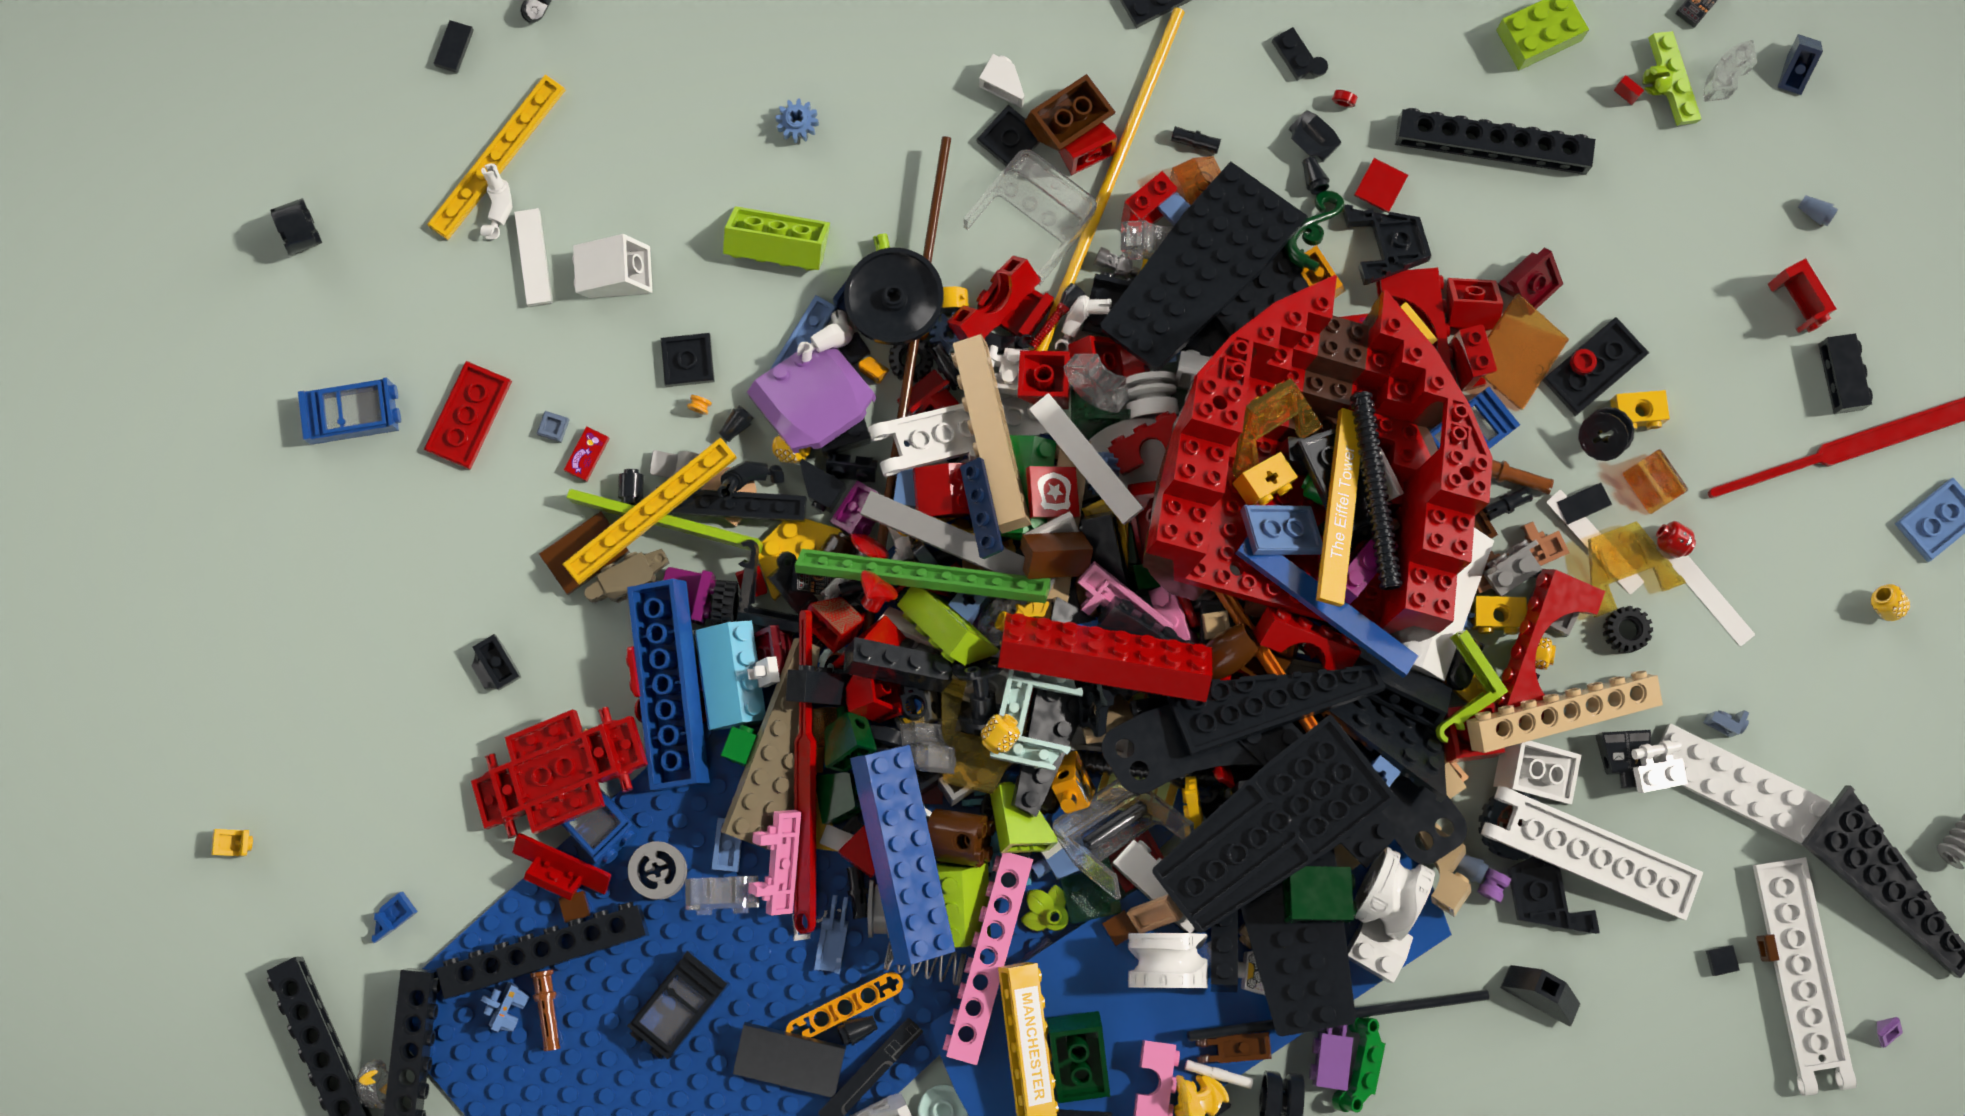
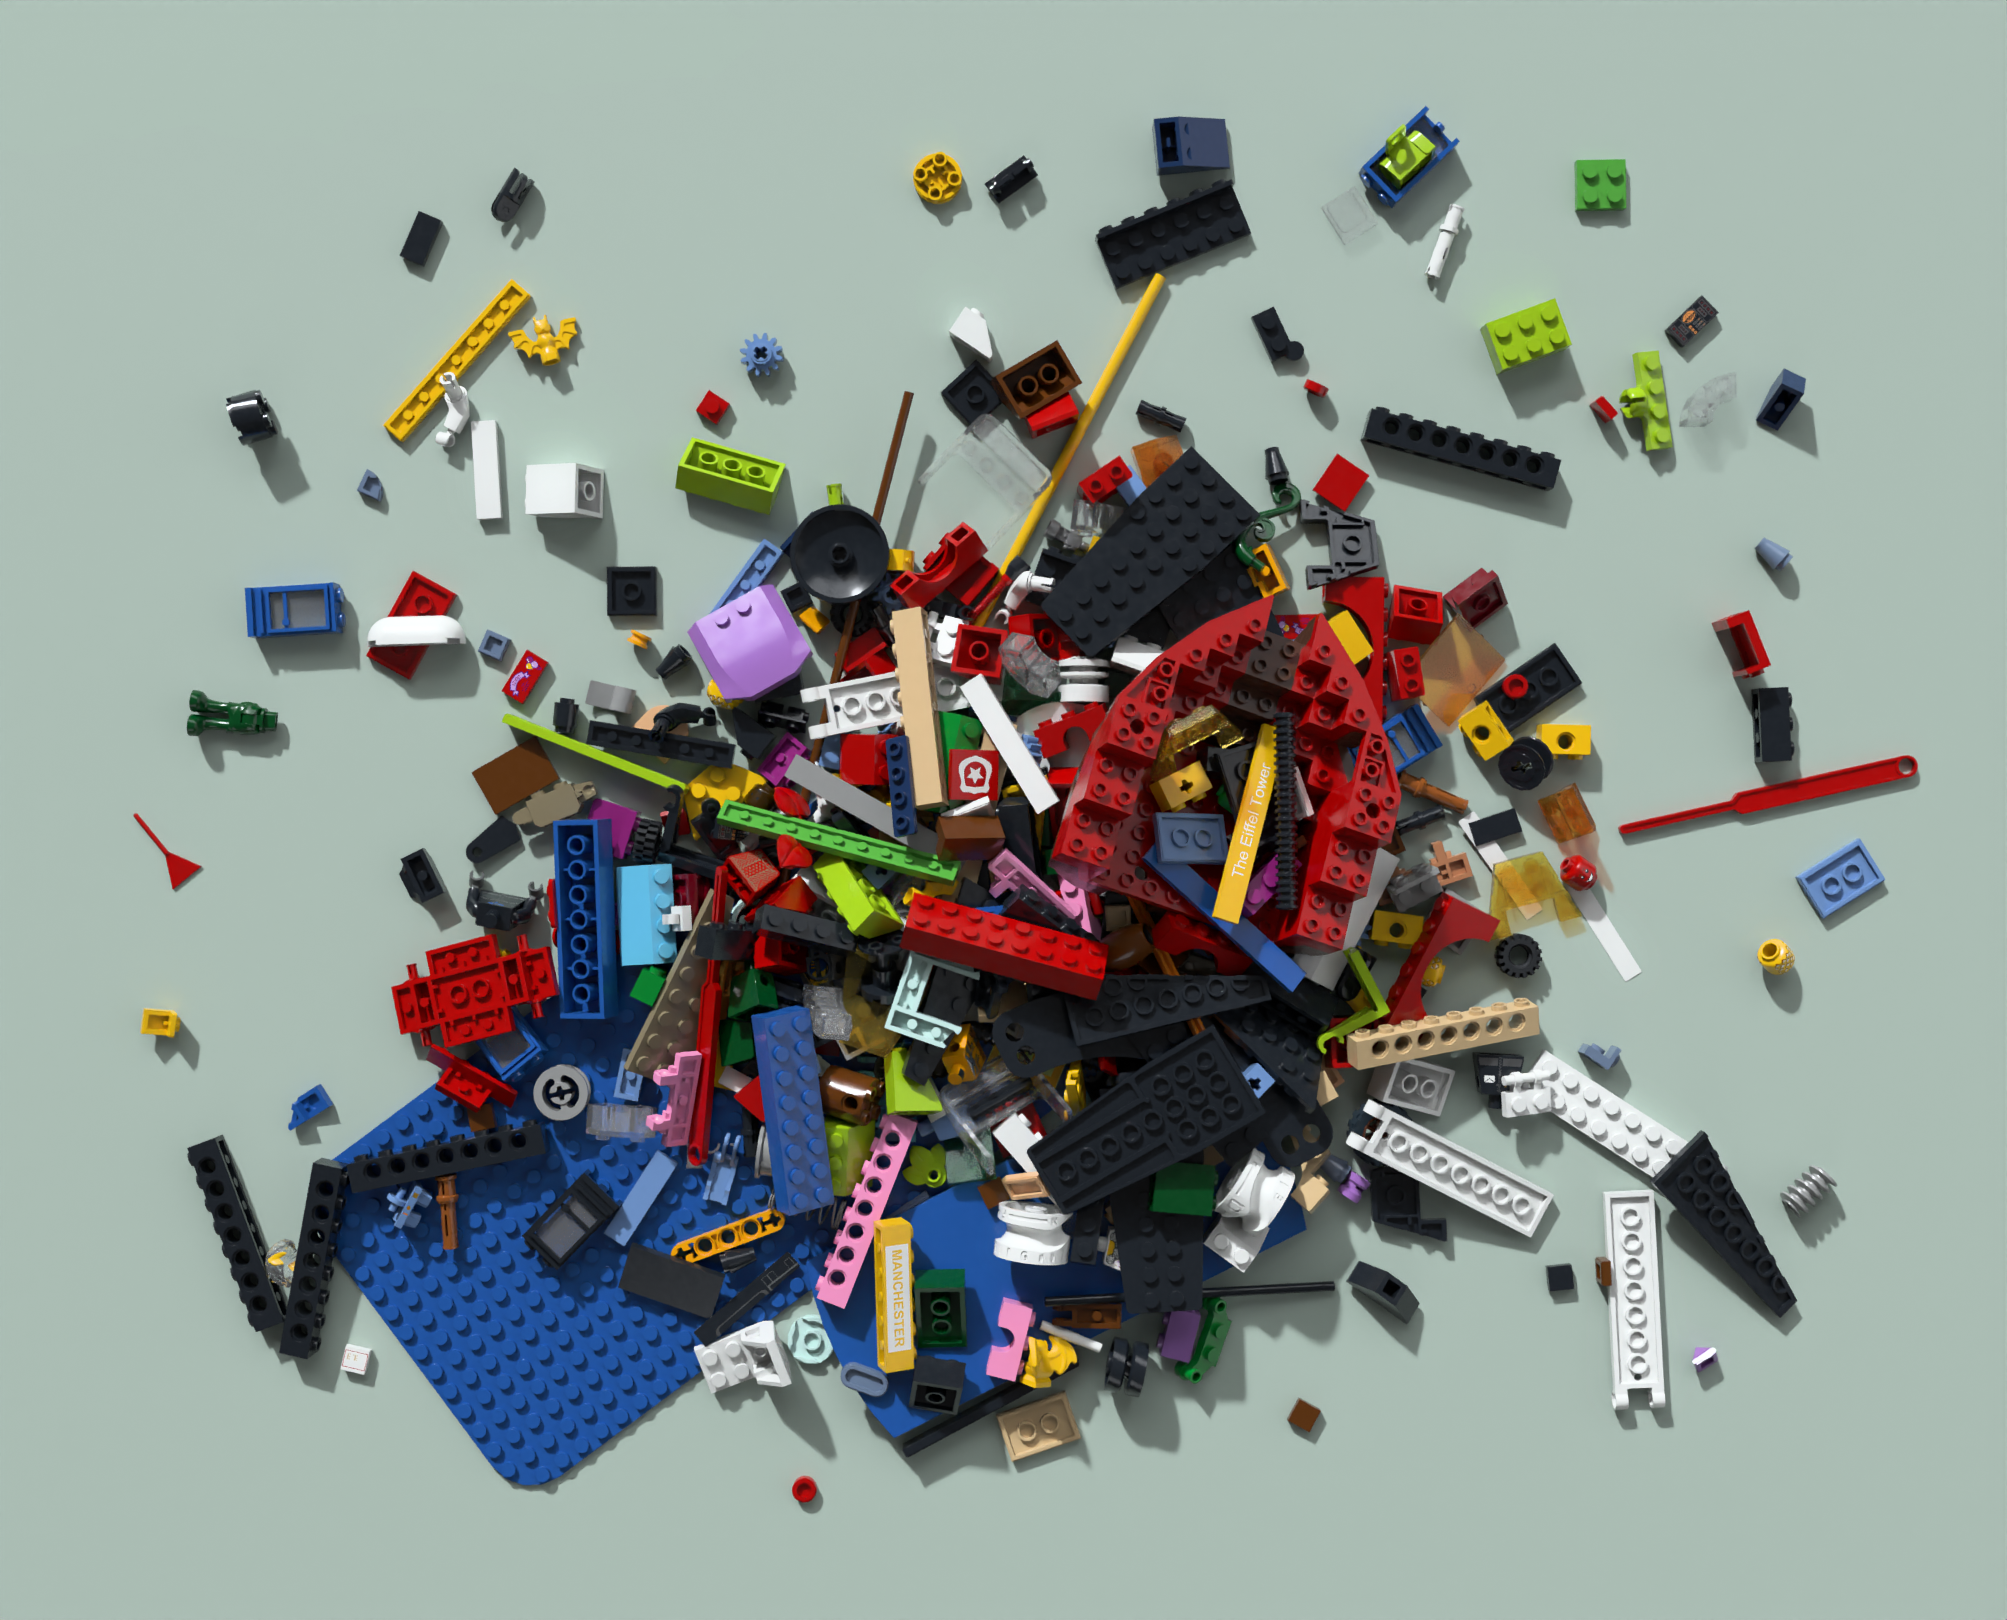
camera: 10 degrees right, 10 degrees up
(243, 682) = (178, 867): none -> red piece
(302, 523) = (243, 717): none -> dark green piece
(418, 284) = (371, 486): none -> sand blue tile
(472, 419) = (415, 631): none -> white brick
(566, 620) = (493, 840): none -> black piece
(578, 688) = (499, 909): none -> black torso
(583, 132) = (546, 344): none -> yellow animal
(649, 511) = (581, 745): yellow tile -> none
(749, 975) = (641, 1198): none -> medium blue tile
(753, 176) = (713, 407): none -> red plate
(833, 335) = (775, 587): white arm -> none
(1000, 733) = (895, 1010): yellow head -> none
(1314, 135) = (1279, 425): black slope -> none
(1574, 413) = (1484, 716): none -> yellow brick

